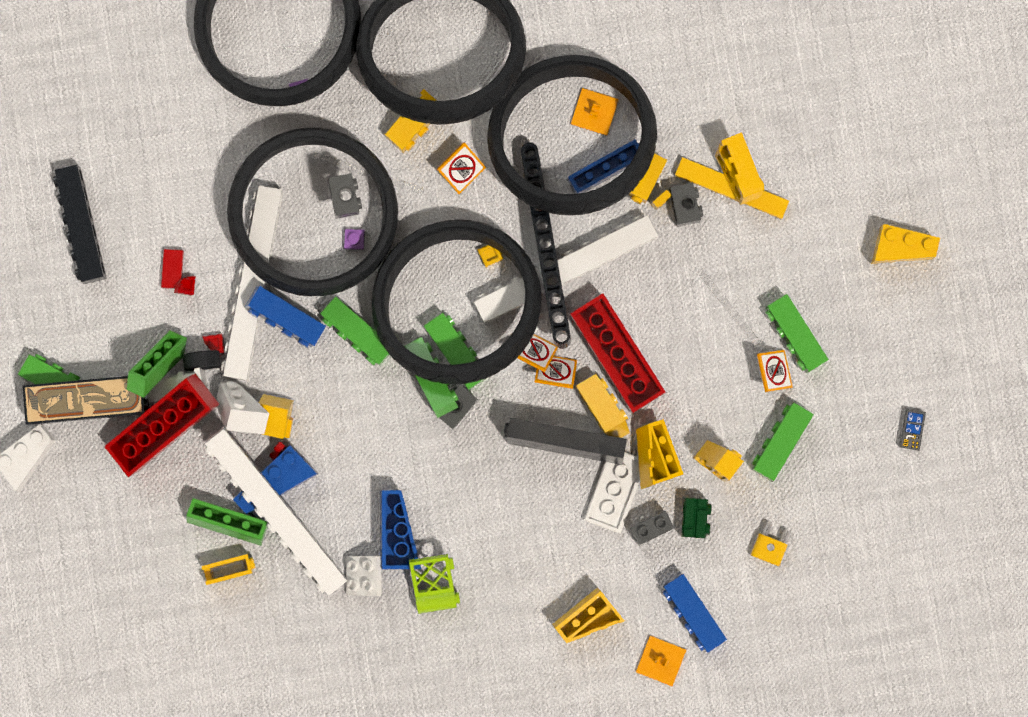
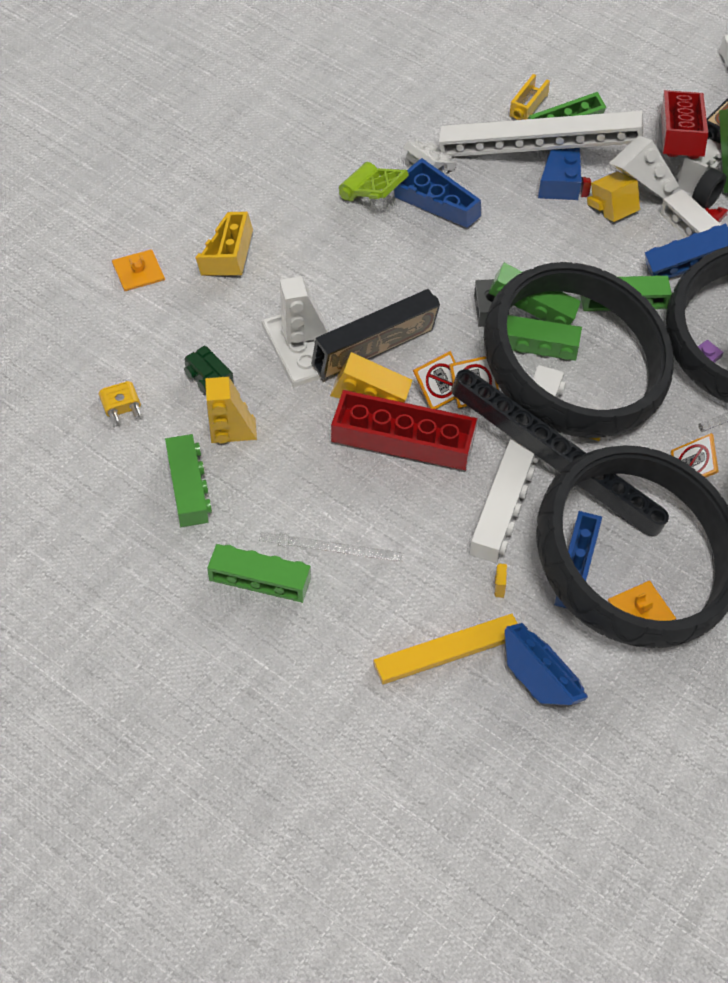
camera: 135 degrees right, 30 degrees down
(602, 496) = (299, 312): none -> white wedge
(644, 188) = (533, 589): yellow window -> none
(652, 528) = (238, 338): dark grey brick -> none
(656, 455) = (286, 381): yellow wedge -> none
(685, 216) = (471, 583): dark grey brick -> none
(694, 613) = (141, 311): blue brick -> none
(695, 121) = (541, 668): none -> blue wedge
(739, 168) = (458, 658): yellow wedge -> none
(774, 370) = (249, 524): piece -> none
(900, 245) = (227, 731): yellow wedge -> none
(912, 429) = (69, 585): tile -> none

